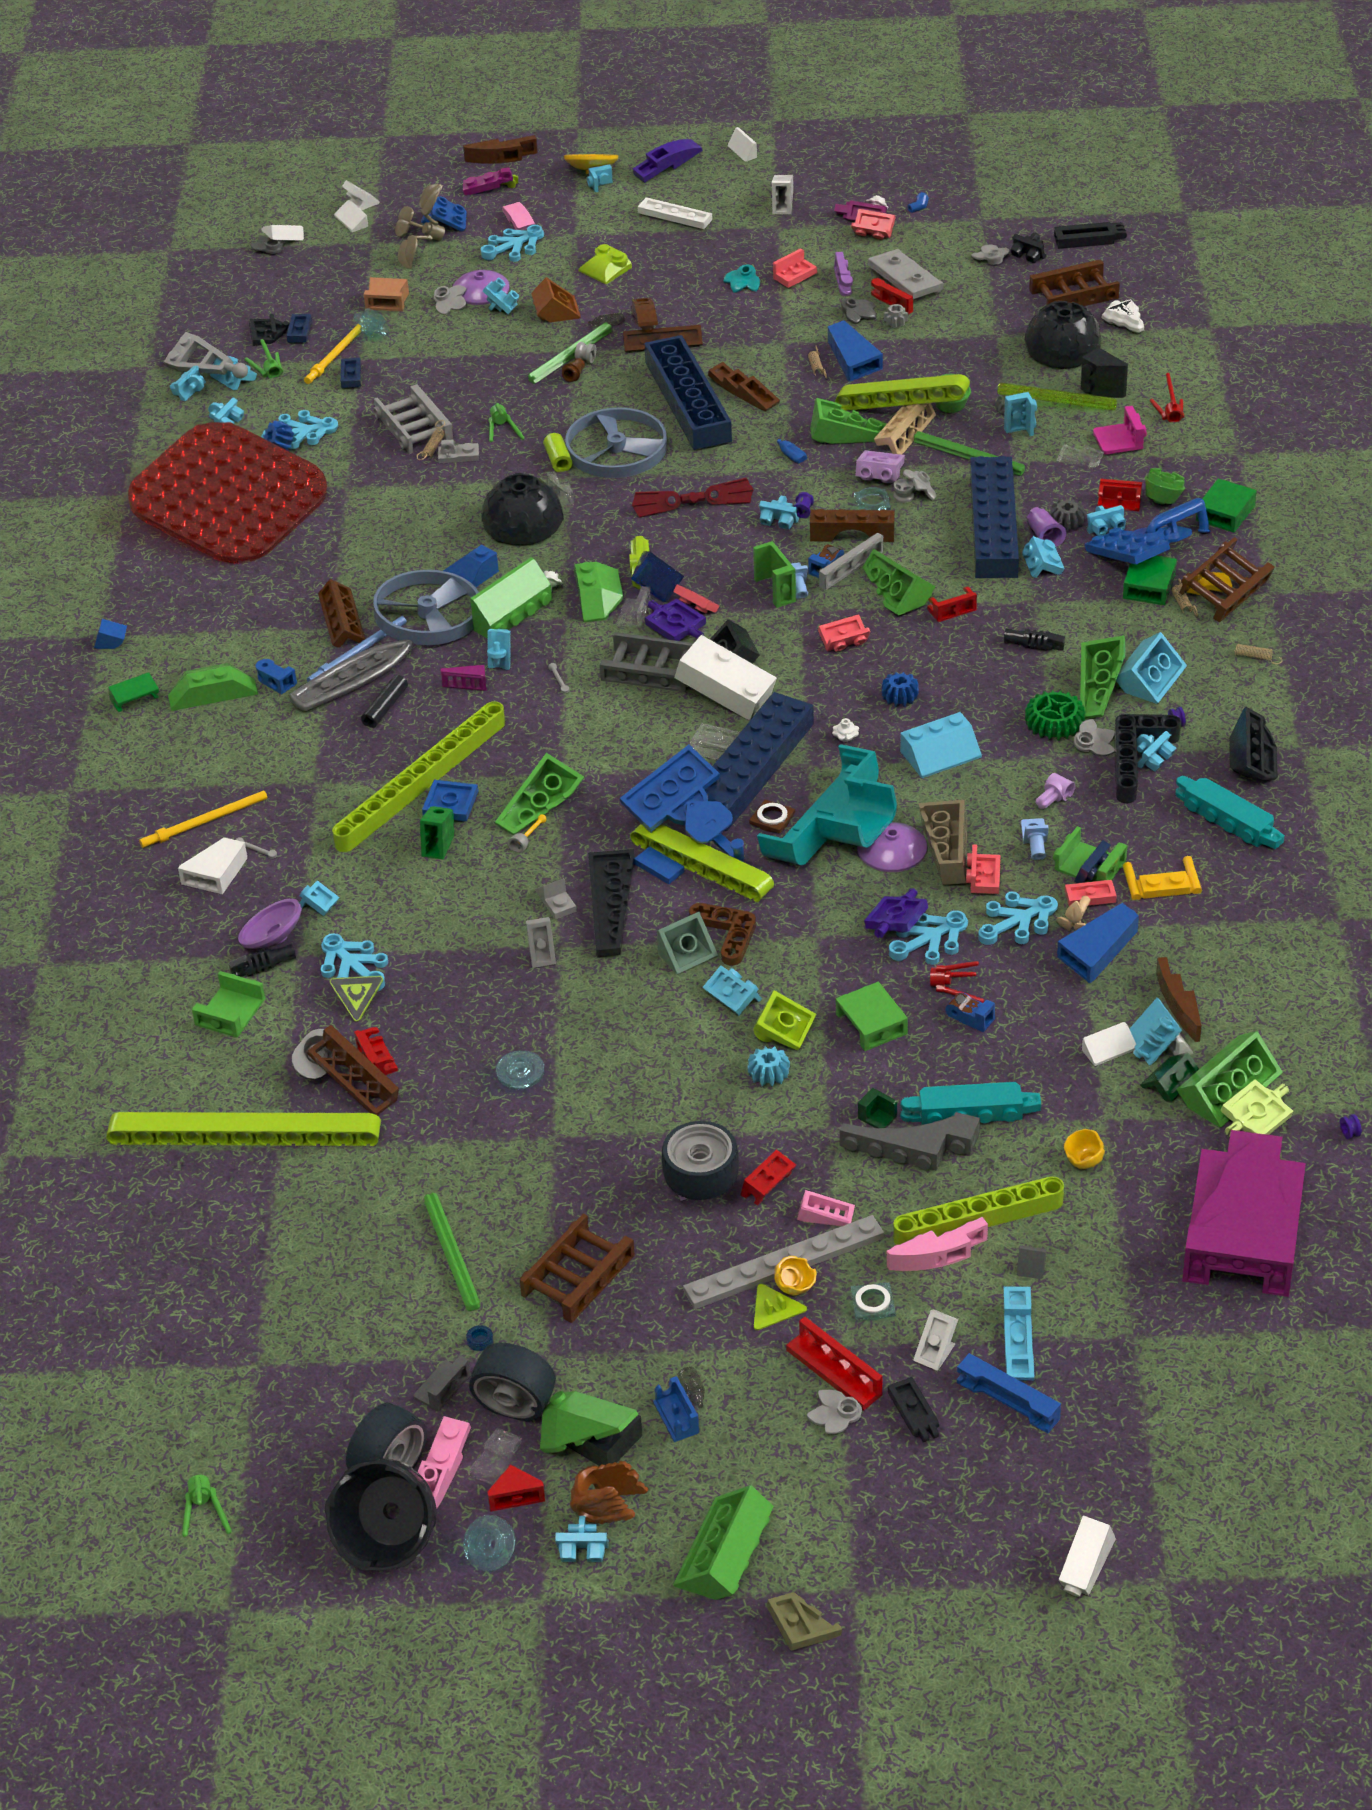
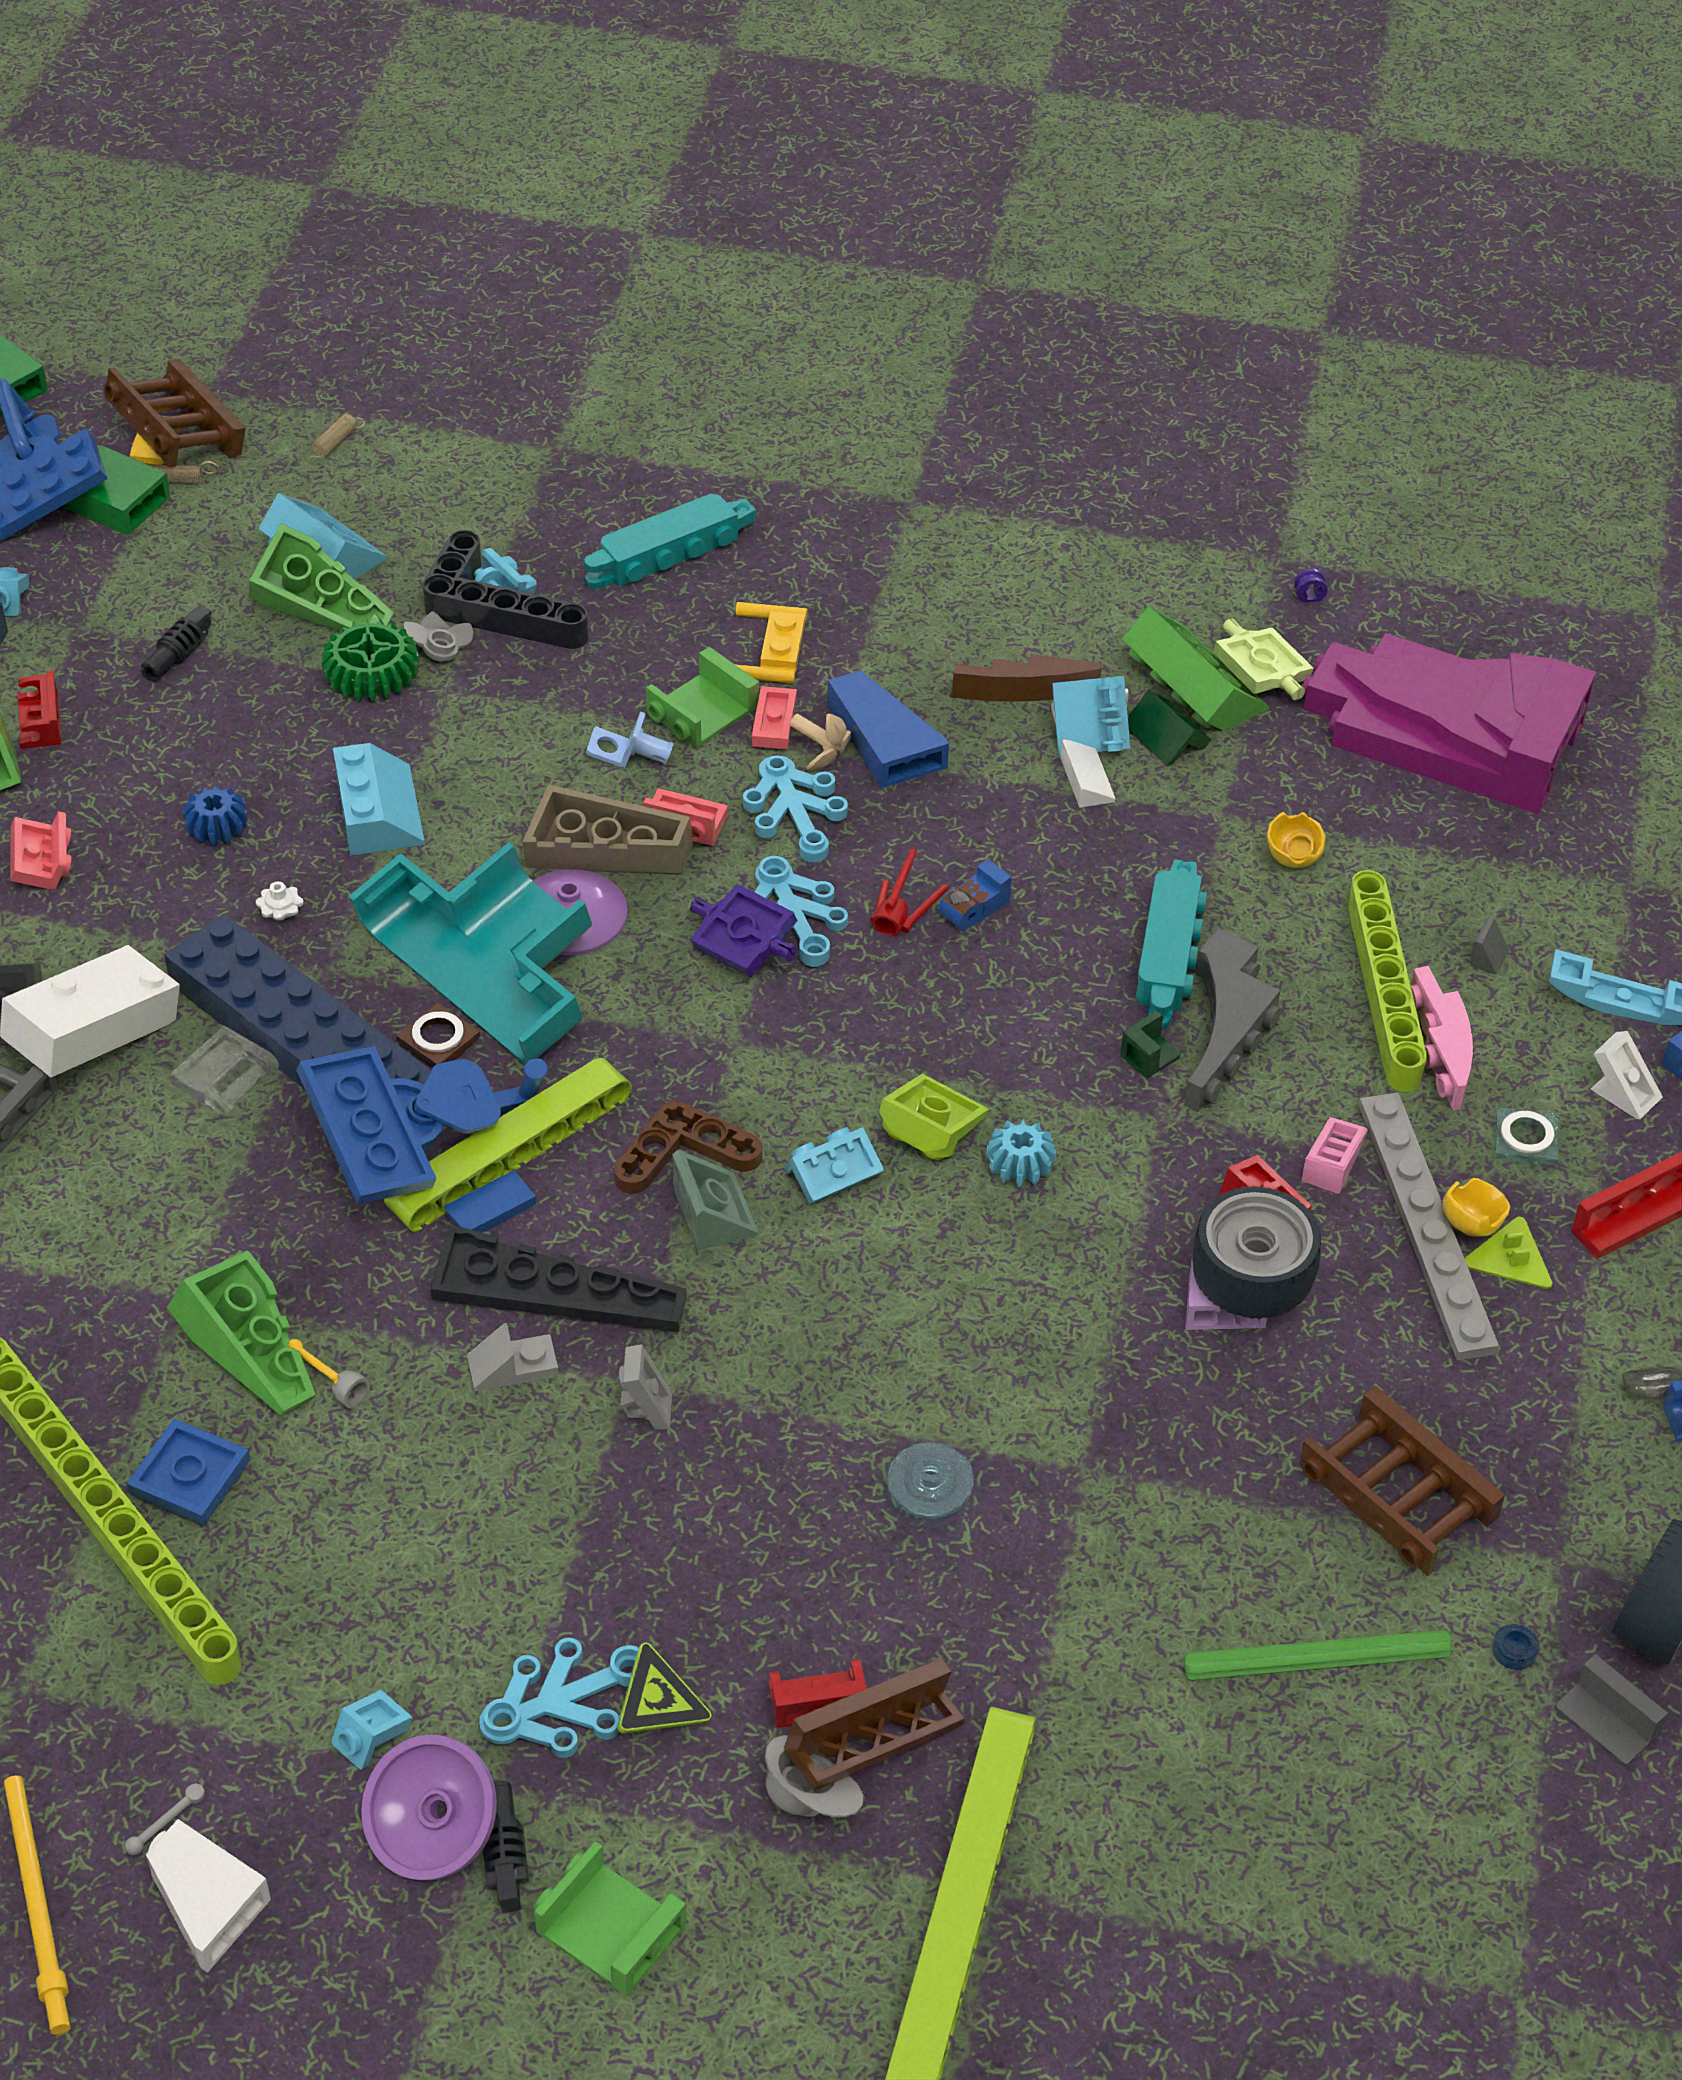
camera: 80 degrees left, 5 degrees up
(436, 823) = (281, 1496): green torso -> none
(873, 1015) = (949, 1002): bright green panel -> none
(1055, 790) = (537, 698): lavender axle -> none
(1089, 868) = (723, 695): dark blue plate -> none
(1179, 713) = (434, 532): dark purple bush -> none
(1253, 747) = (554, 484): black wedge -> none

